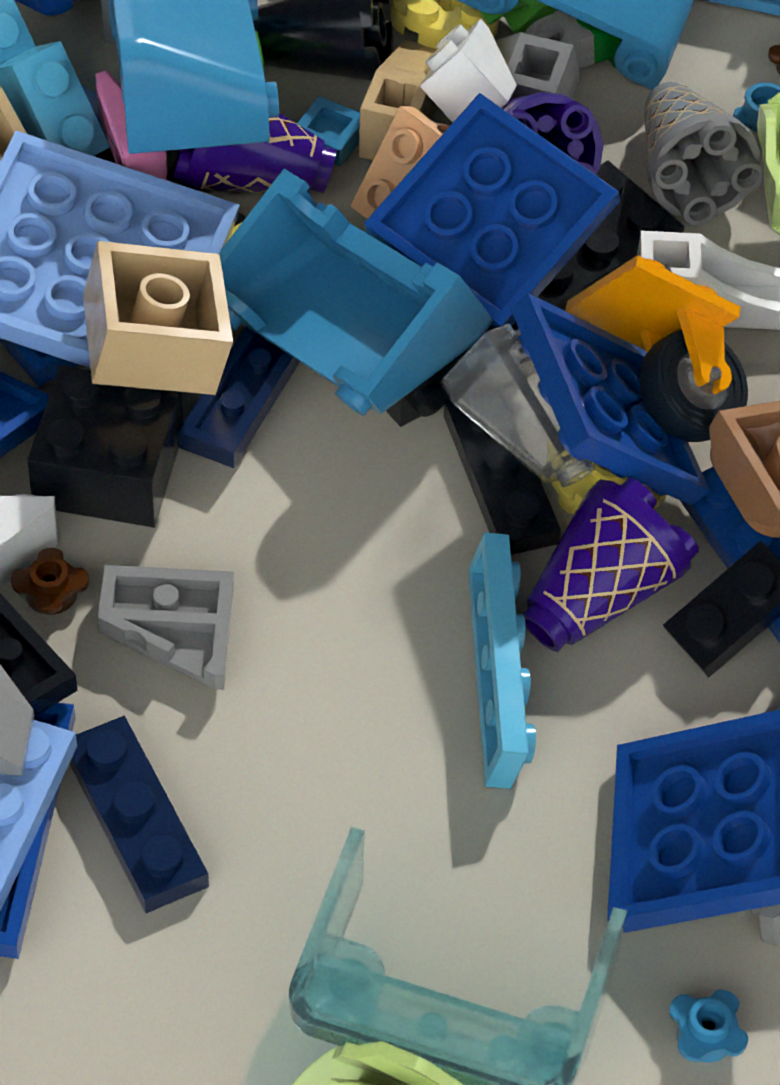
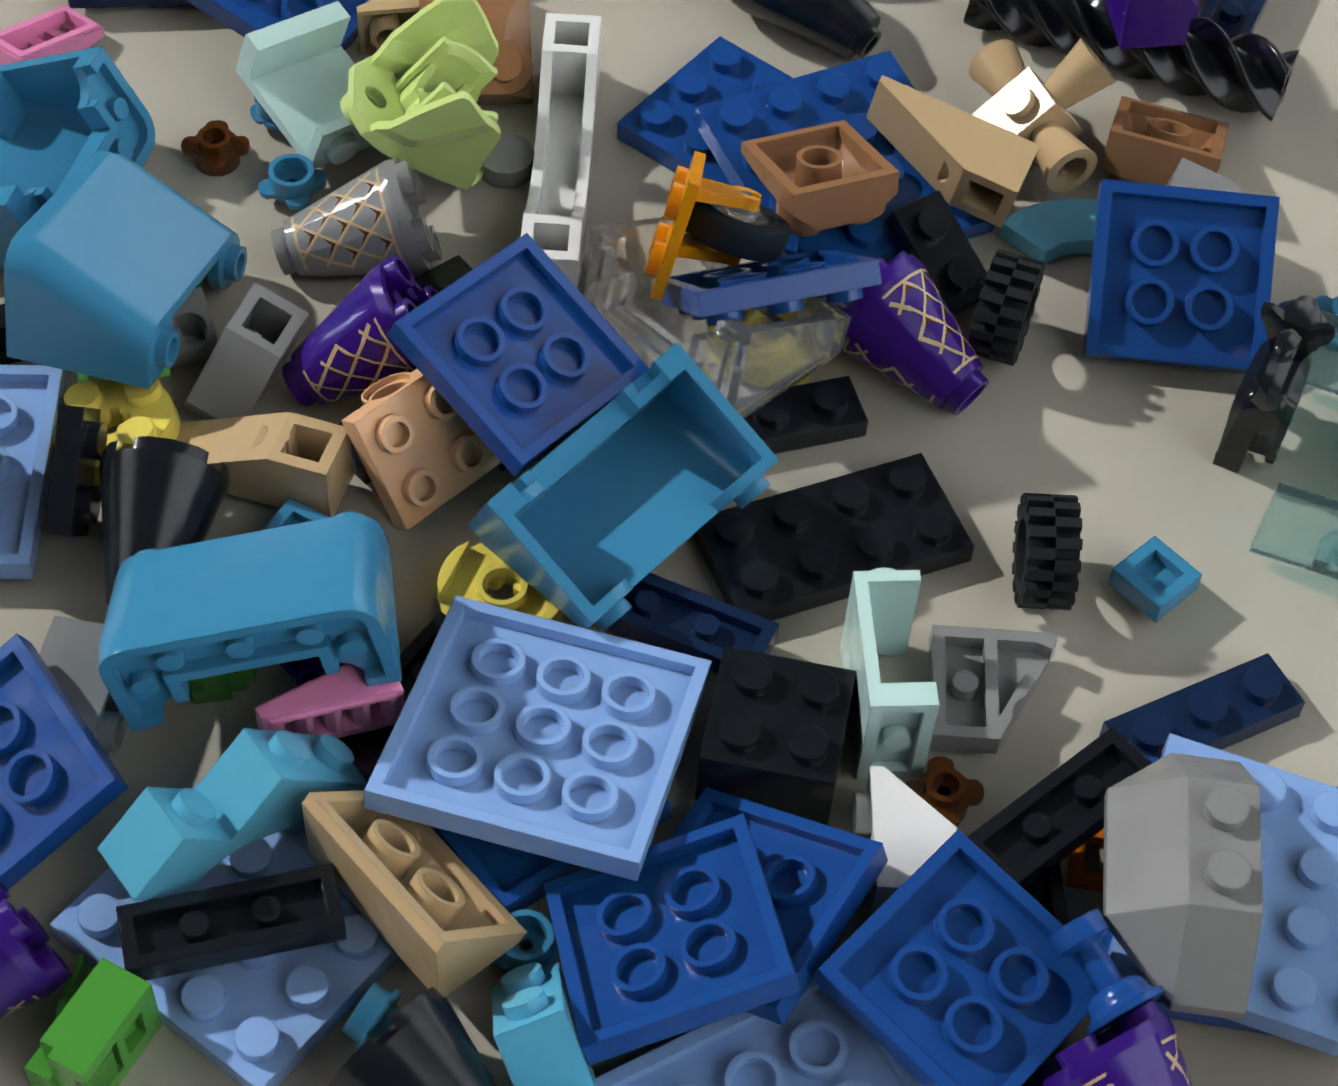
camera: 90 degrees left, 0 degrees up
(156, 318) = (682, 635): tan brick -> none
(158, 497) = (886, 720): none -> light aqua panel
(303, 778) = (1155, 579): none -> dark azure plate
(313, 659) = (1047, 551): none -> black tyre
(355, 519) = (807, 542): none -> black plate
(464, 67) = (280, 378): white slope -> none
(497, 647) = (1009, 426): medium azure plate -> none
(538, 884) = (1273, 381): none -> black animal
(648, 649) = (1006, 306): none -> black tyre

